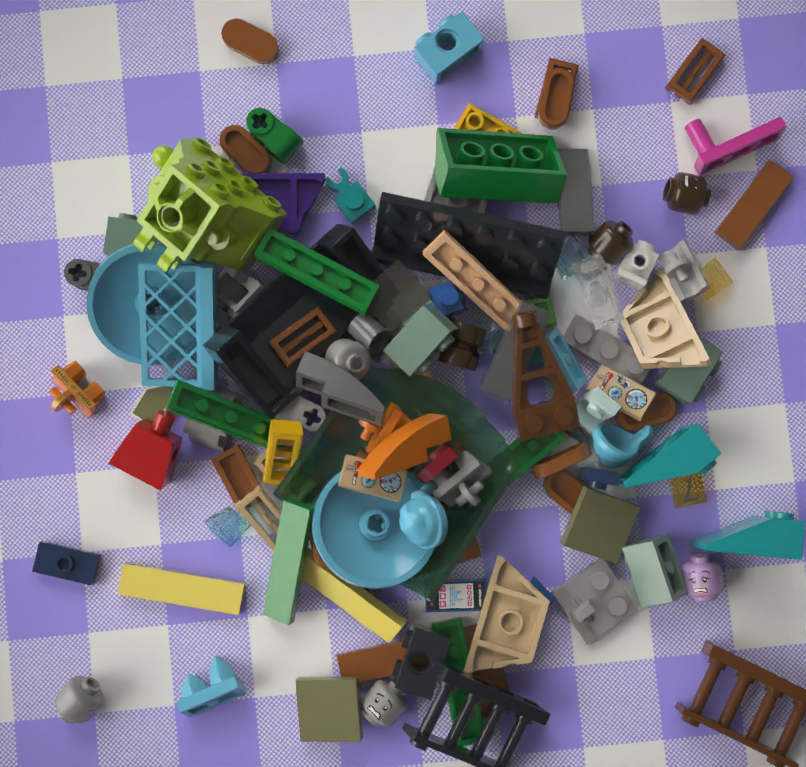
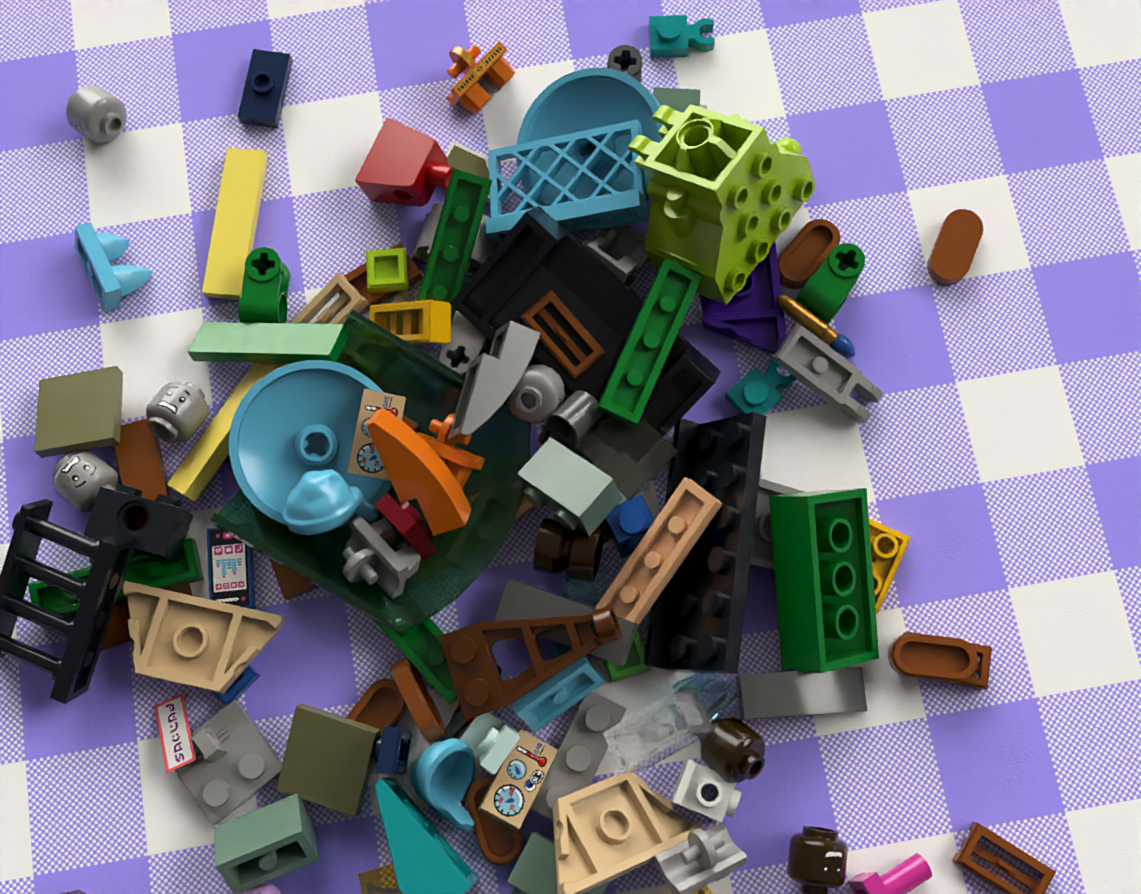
camera: 85 degrees right, 10 degrees down
(52, 235) = (672, 36): none -> teal plate
(227, 525) = (315, 269): clear light blue slope -> none
(234, 469) = (387, 270): none -> lime tile
(249, 565) = (264, 296): none -> green piece
(305, 150) = (815, 325): none -> pearl gold piece
(335, 633) = (177, 412): none -> light grey head
(343, 148) = (826, 372): none -> light grey hinge
(440, 62) = (989, 526): medium azure brick -> none
(572, 636) = (175, 733): none -> white sticker

